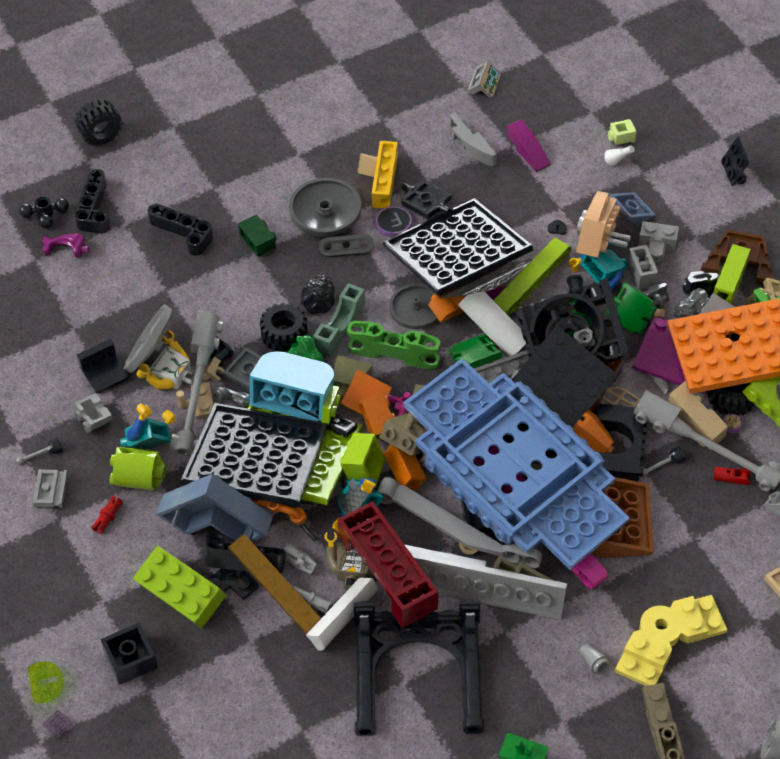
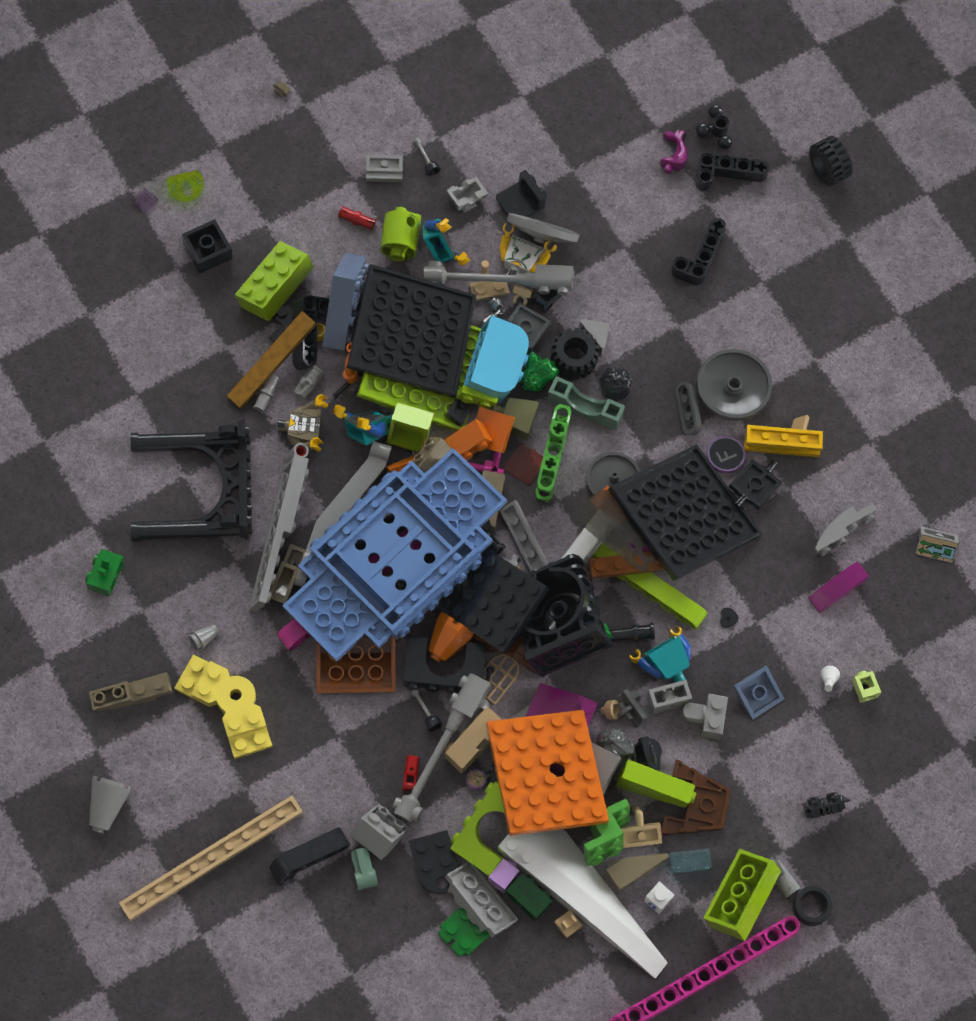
camera: 80 degrees right, 15 degrees up
(257, 235) = (695, 323): dark green brick -> none
(258, 307) = (598, 330): none -> light grey slope
(341, 613) = (258, 423): white brick -> none
(390, 562) = (284, 444): dark red plate -> none
(398, 376) = (524, 464): none -> clear red piece
(475, 351) = (551, 531): green plate -> none
(512, 294) = (616, 566): none -> dark orange plate
(585, 333) = (552, 618): light grey plate -> none
(598, 226) = (709, 644): light nougat piece -> none
(634, 309) = (611, 683): green plate -> none

